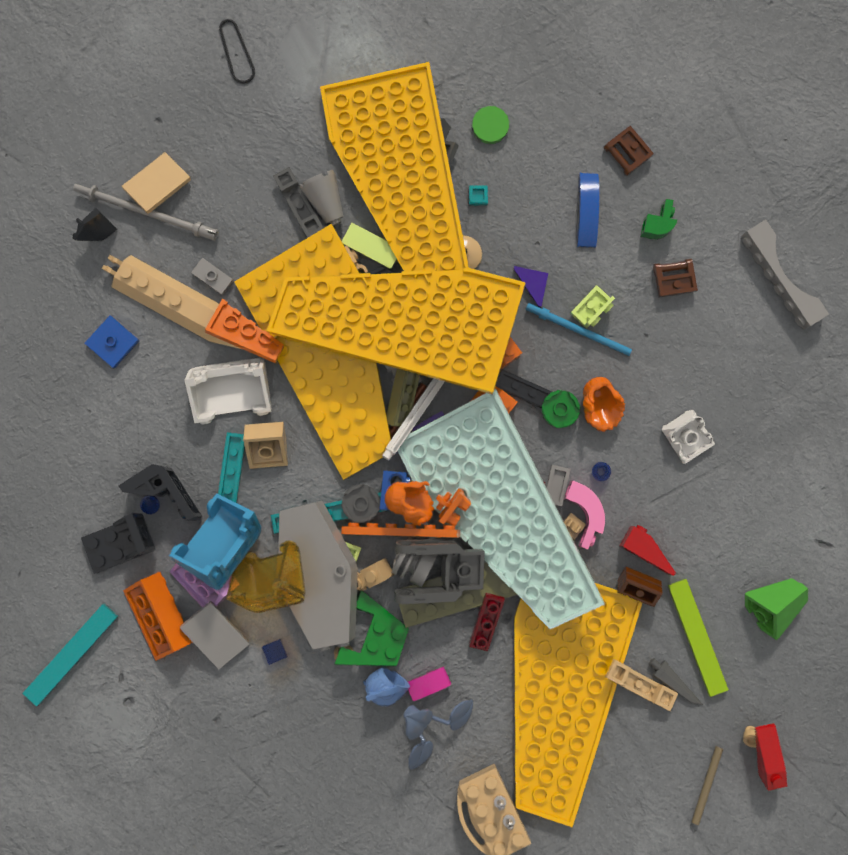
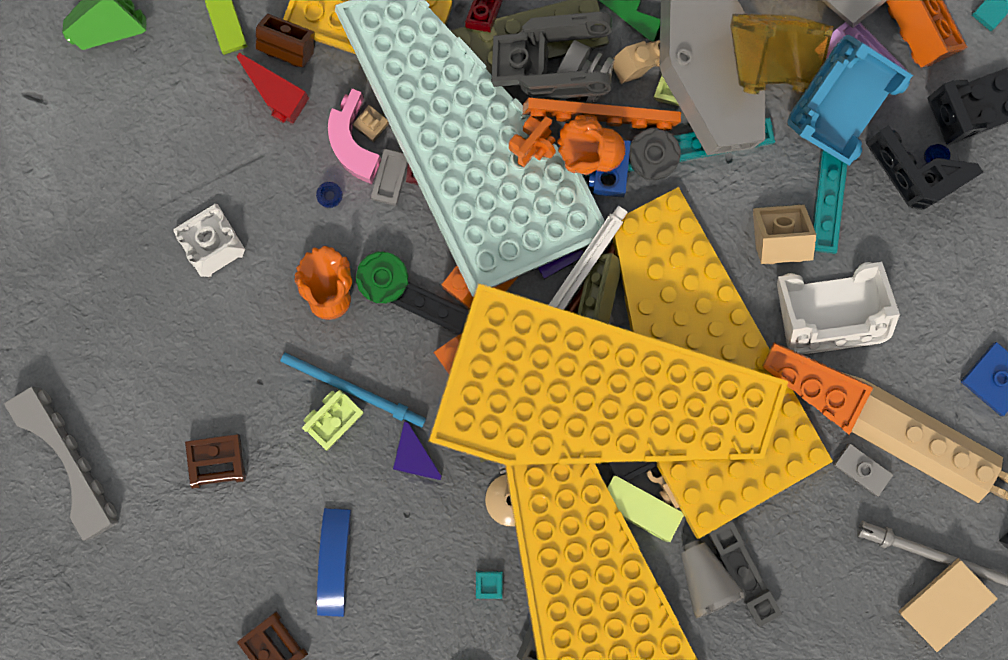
camera: 175 degrees left, 0 degrees up
(656, 226) = (231, 534): green brick -> none

